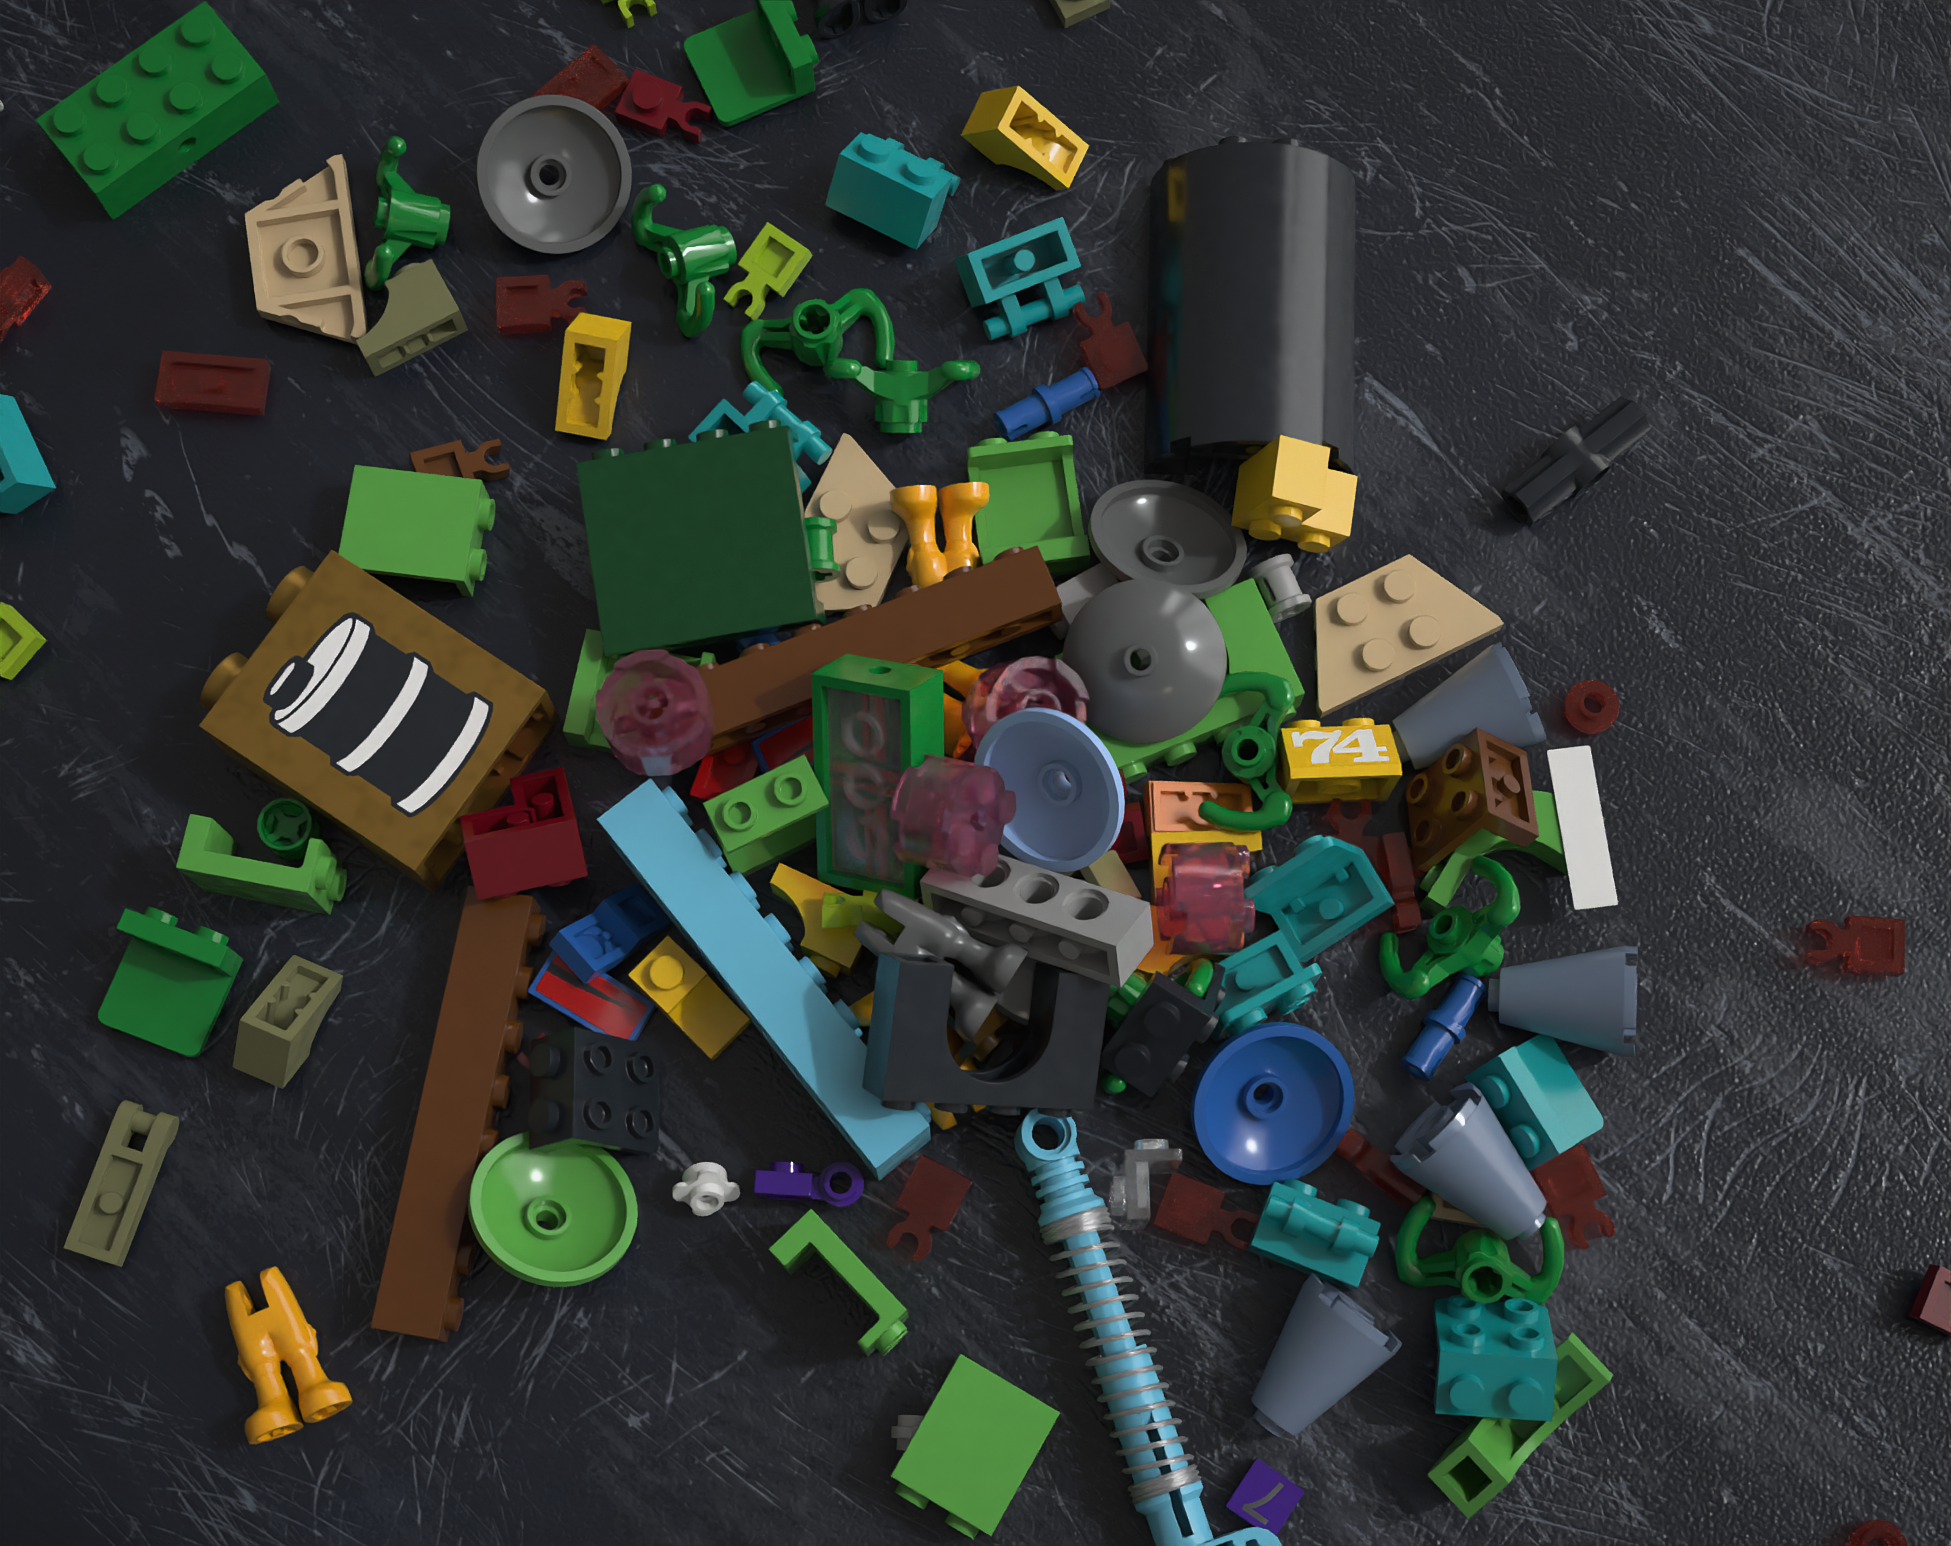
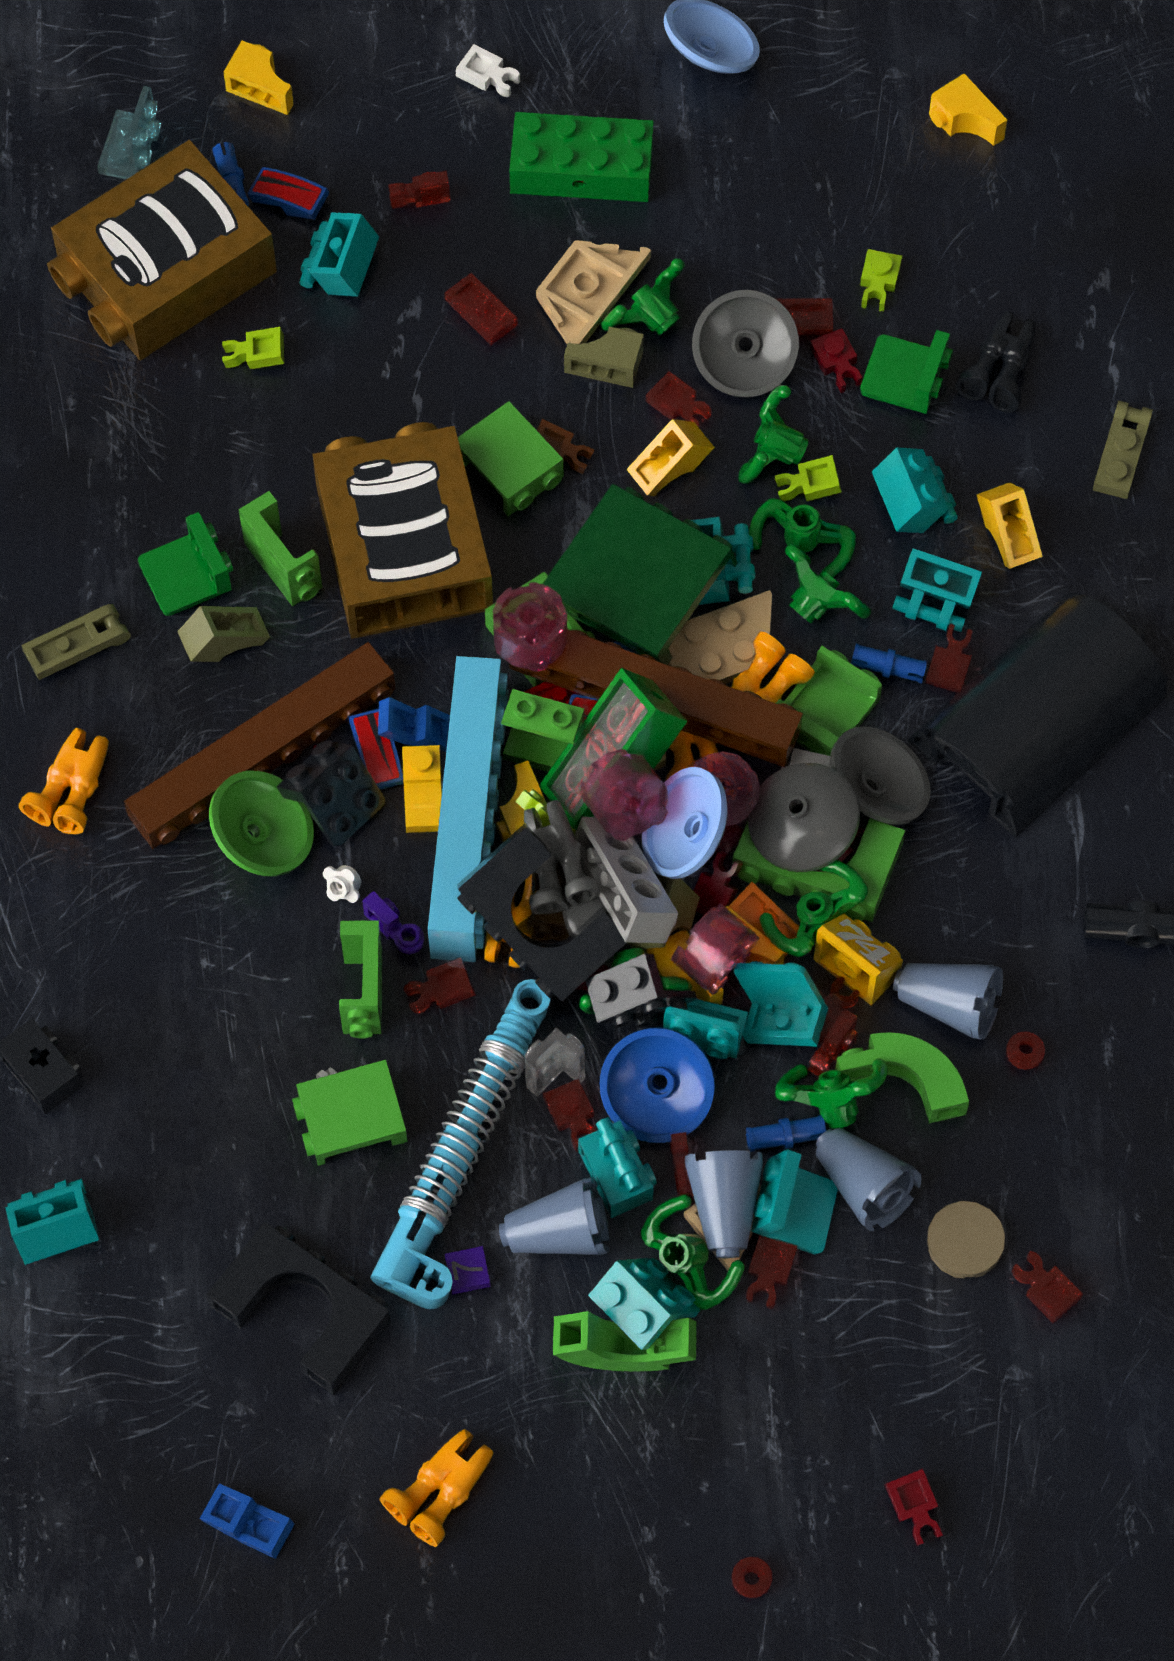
camera: 45 degrees right, 10 degrees down
(282, 821) = (312, 537): green wheel -> none
(525, 842) = (416, 643): dark red brick -> none
(821, 548) = (696, 629): green bush -> none
(1280, 587) = (918, 852): light grey bush -> none
(1294, 496) = (967, 811): yellow brick -> none
(1390, 628) = (957, 923): tan wing -> none
(1468, 789) = (916, 1027): reddish brown bracket -> none
(1582, 827) = (952, 1094): white sticker -> none
(1729, 969) = (965, 1239): none -> dark tan tile

